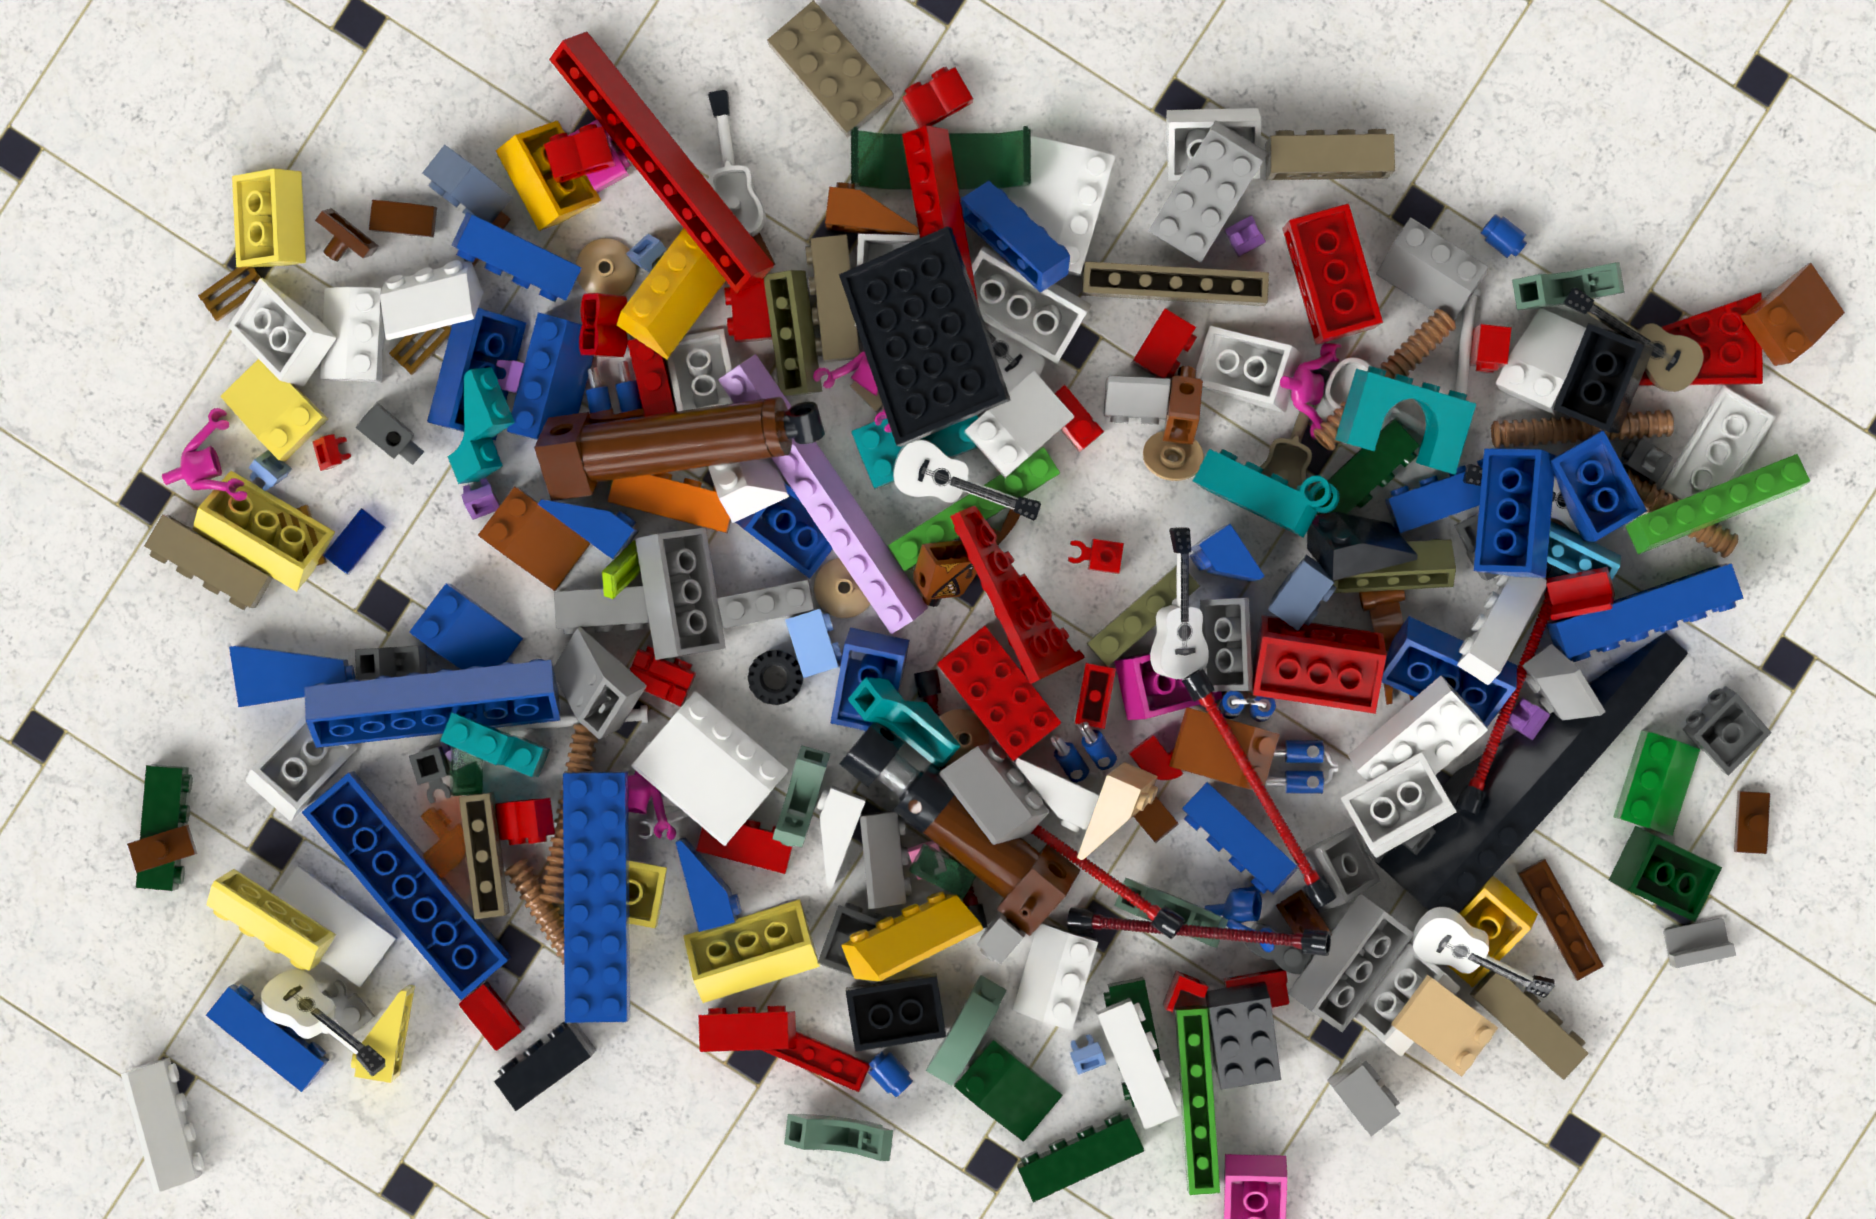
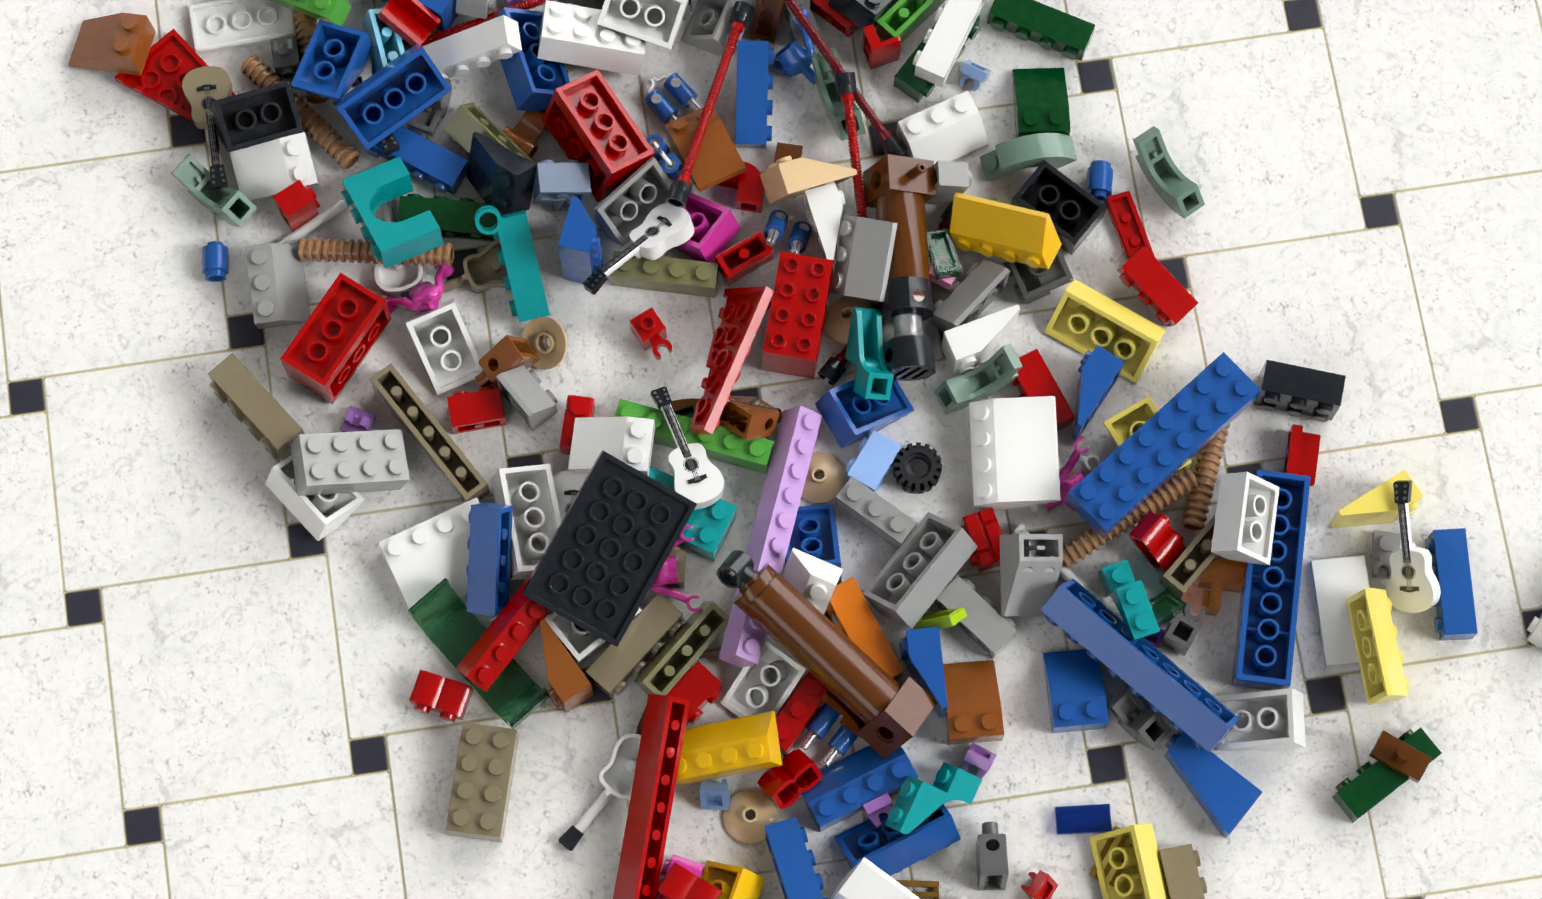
camera: 135 degrees left, 15 degrees down
(471, 905) = (1245, 518): none -> white slope

